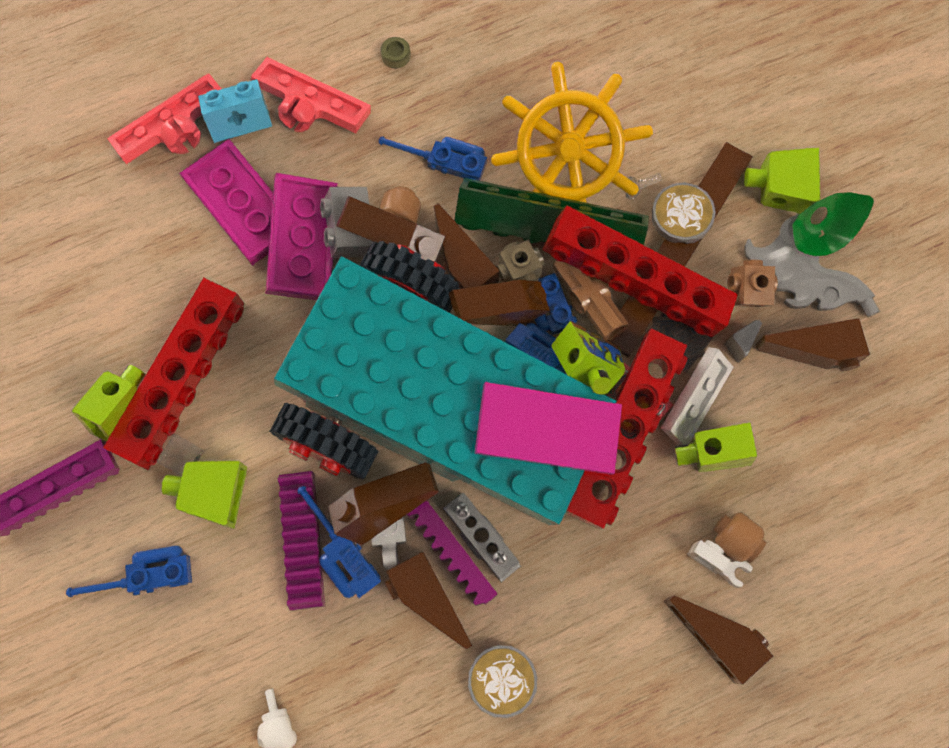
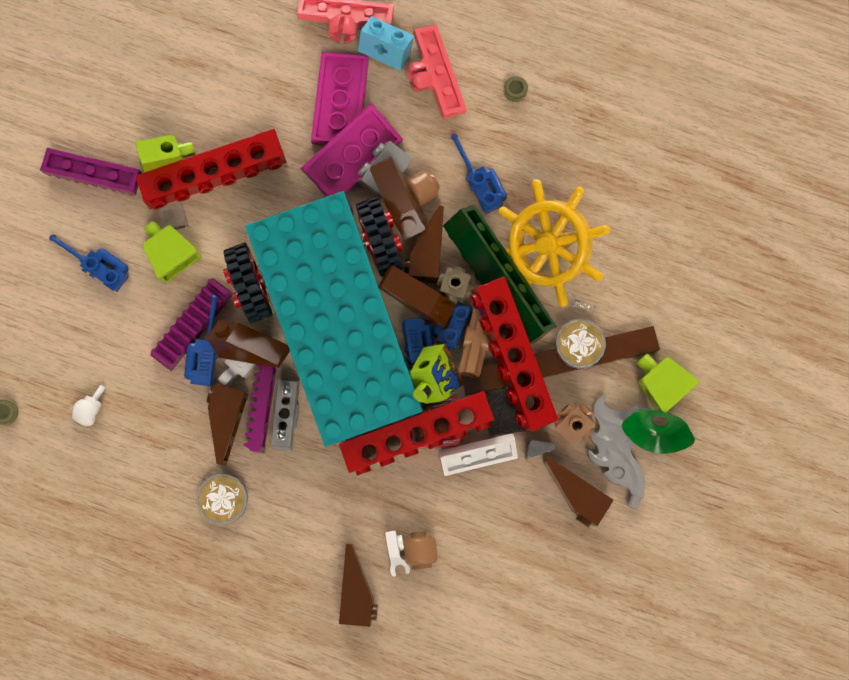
camera: 45 degrees right, 5 degrees up
(548, 428) = (366, 390): dark pink tile -> none
(734, 448) = (464, 499): lime torso -> none

